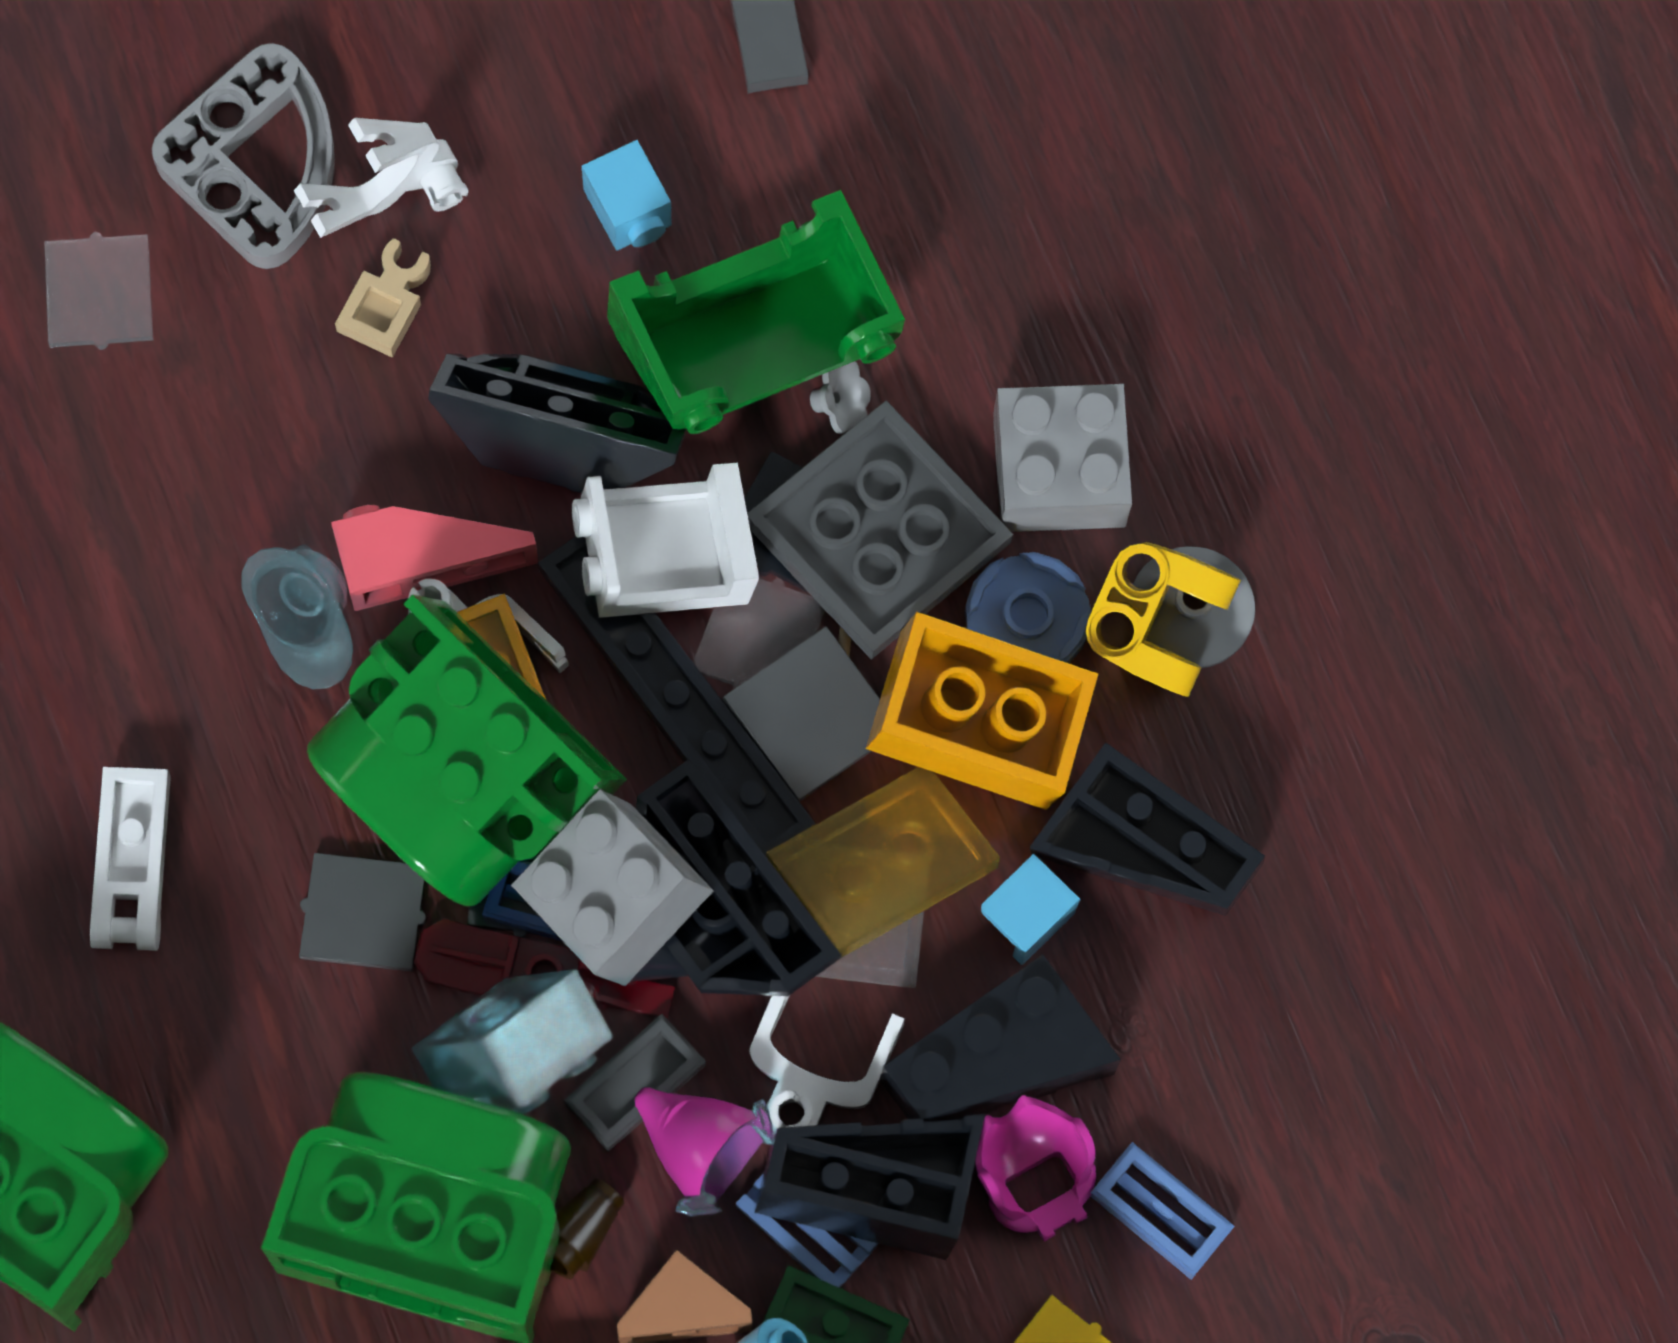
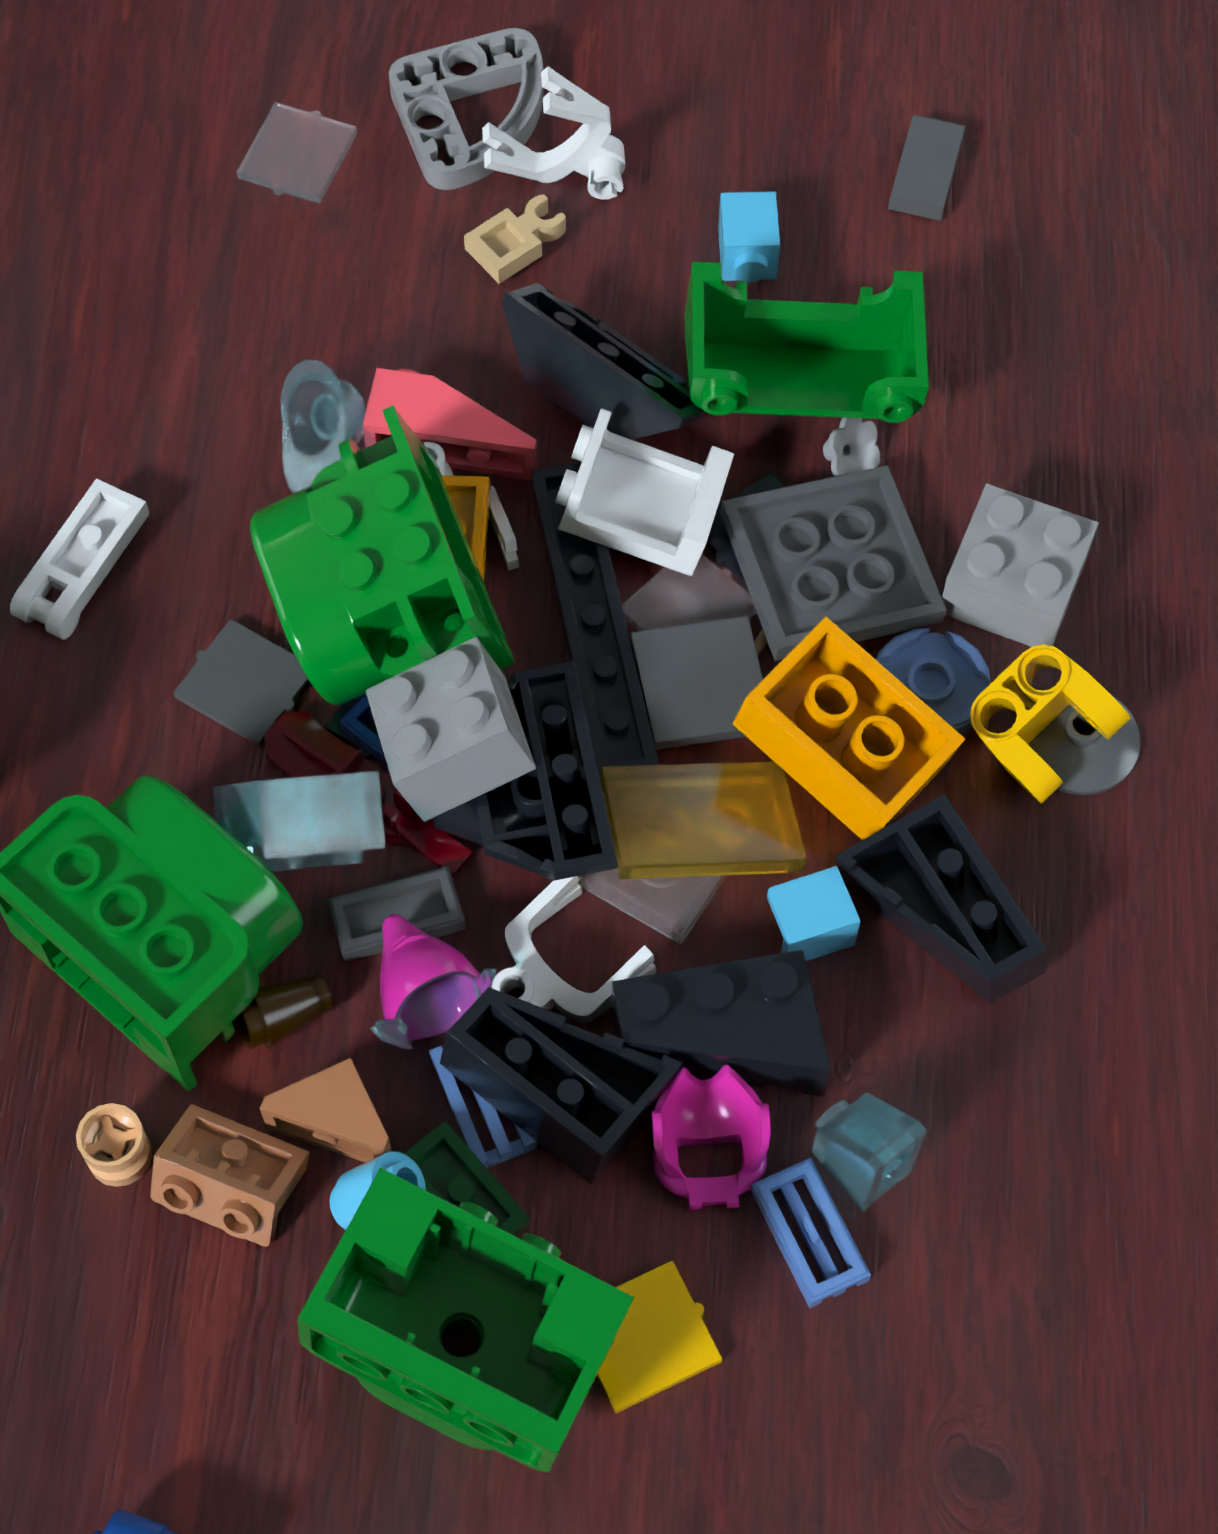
camera: 30 degrees right, 10 degrees down
(1179, 1111) = (867, 1146): none -> clear light blue slope

